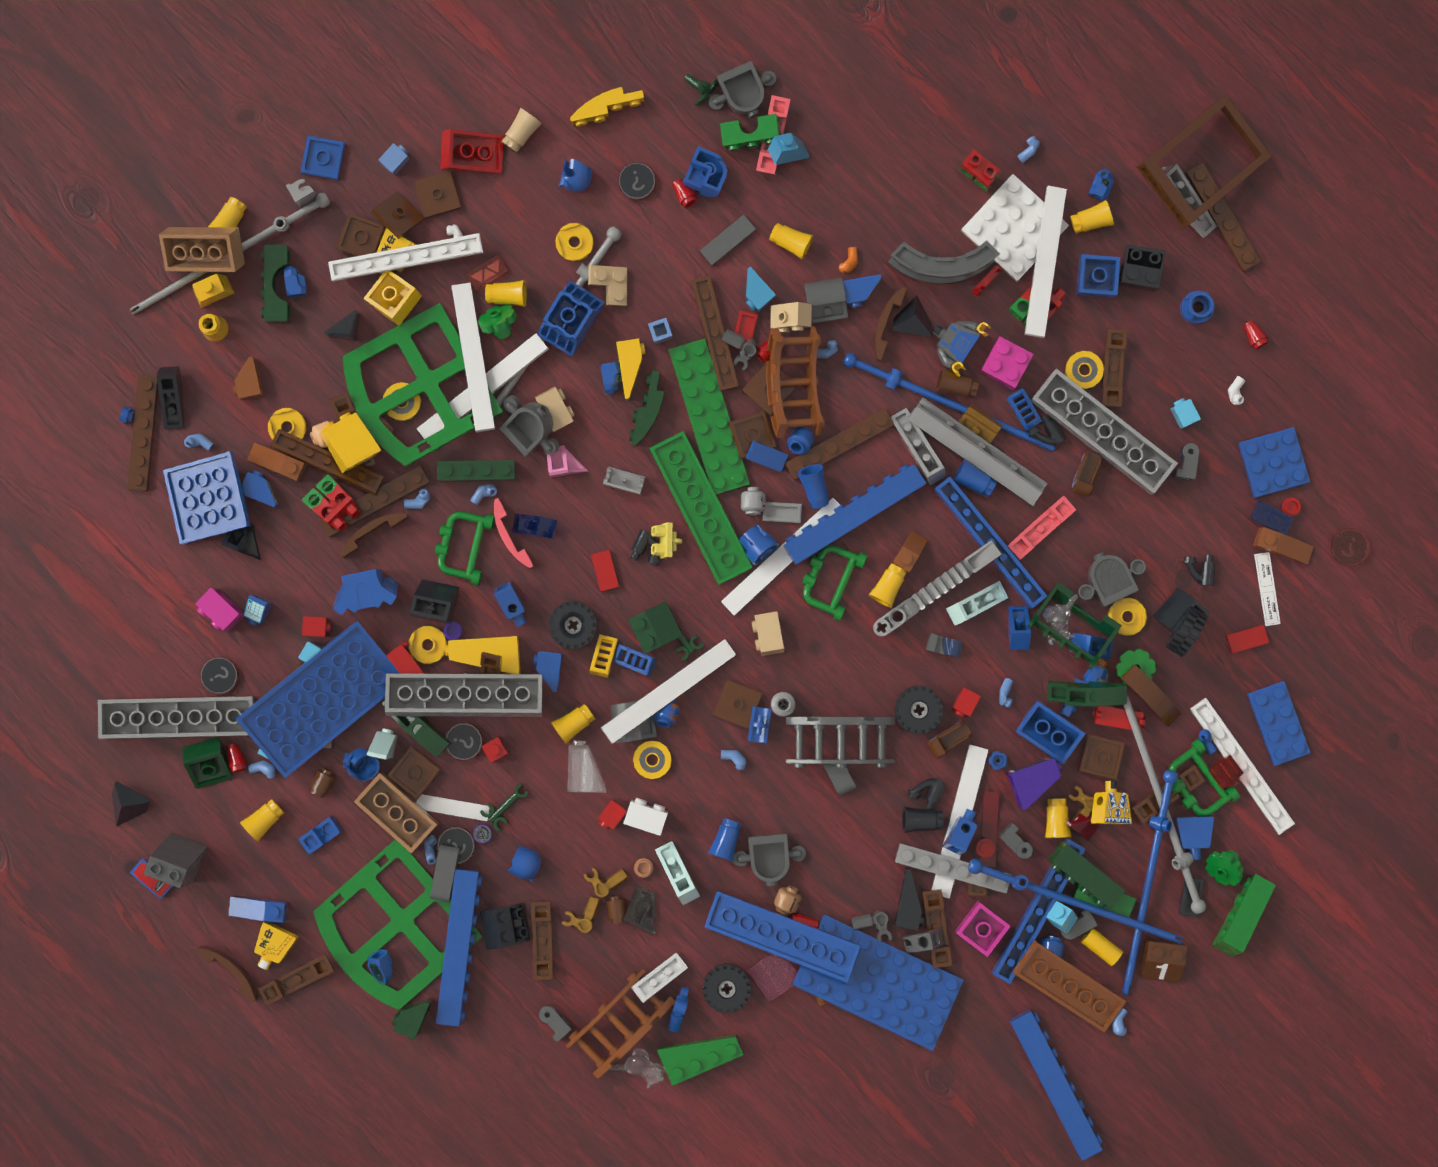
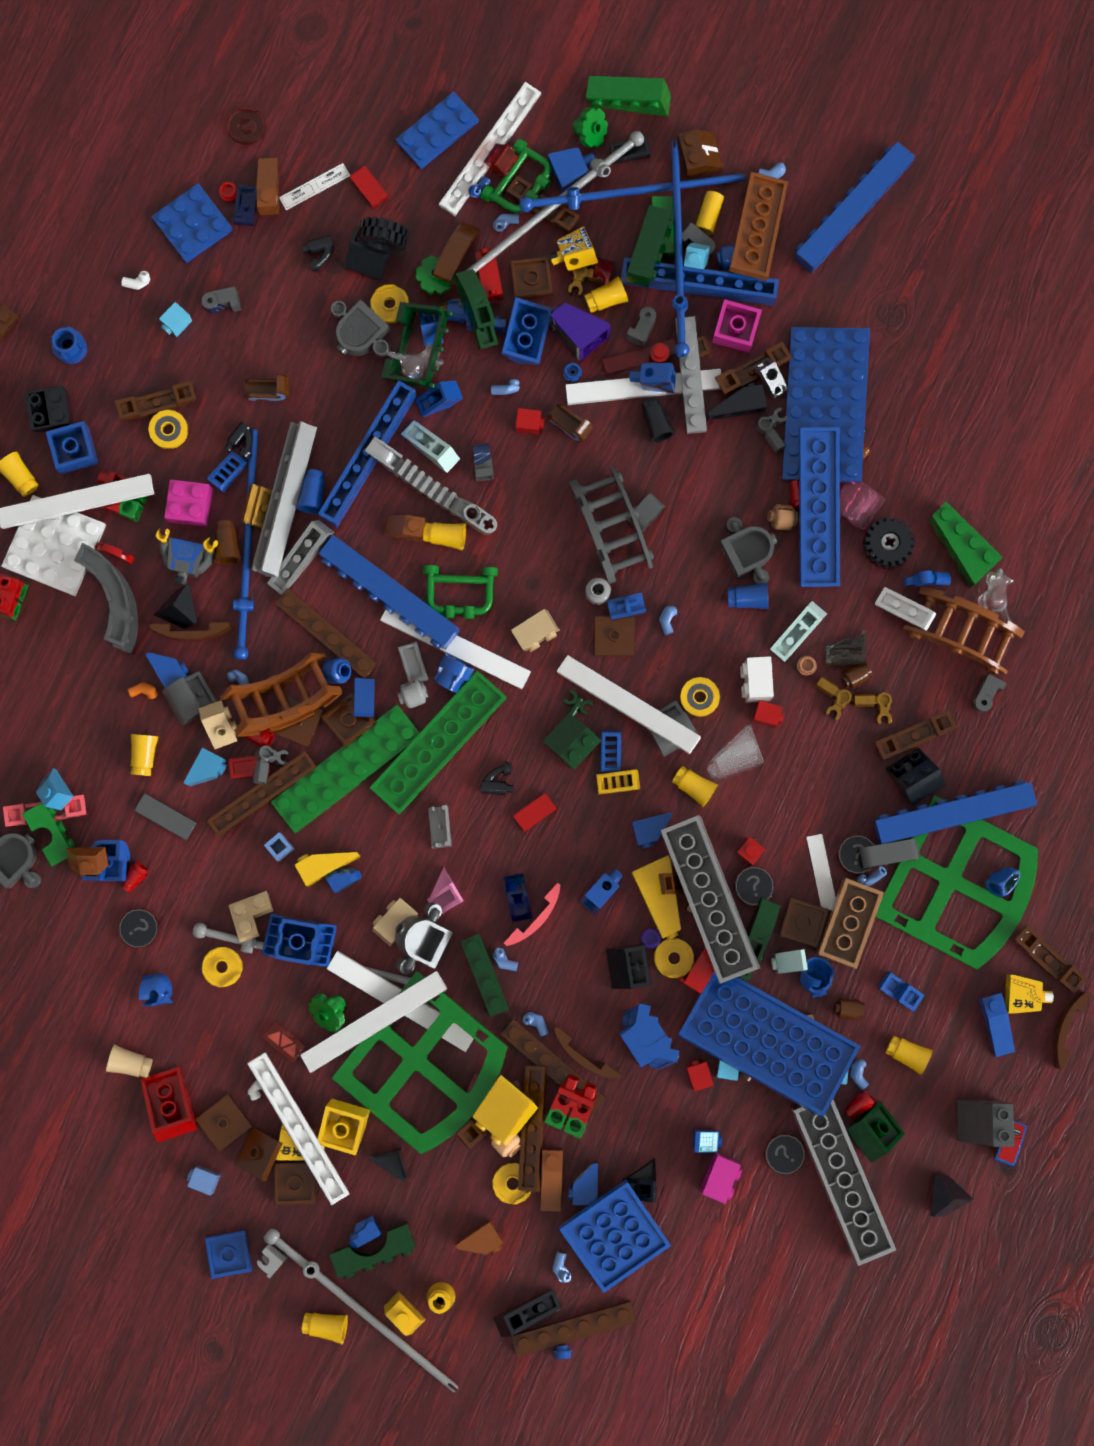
camera: 110 degrees left, 5 degrees down
(202, 249) = (366, 1340): medium nougat brick -> none
(409, 410) = (452, 1068): yellow tile -> none
(411, 1018) = (1041, 831): dark green slope -> none
(443, 548) = (575, 979): green bar -> none
(482, 833) = (836, 833): tile -> none
(495, 816) = (813, 828): dark green bar -> none
(507, 293) = (297, 1013): yellow plant -> none
(525, 863) = (848, 778): blue helmet -> none
(568, 637) = (586, 825): black bush -> none
(598, 107) = (77, 993): yellow slope -> none
(646, 417) = (369, 829): dark green slope -> none
(667, 715) = (652, 696): blue head -> none
(668, 540) = (483, 762): light yellow hips -> none
(704, 88) = (20, 897): dark green plant -> none
(711, 157) = (87, 860): none -> dark orange slope
(814, 485) = (375, 640): blue plant -> none
(912, 721) = (551, 475): black bush -> none
(934, 794) = (622, 419): black plant -> none
(1041, 527) = (334, 413): coral slope -> none
(1103, 432) = (221, 387): light grey brick -> none
(1167, 753) = (504, 220): none -> medium blue arm
(1255, 335) = (76, 282): red cone -> none

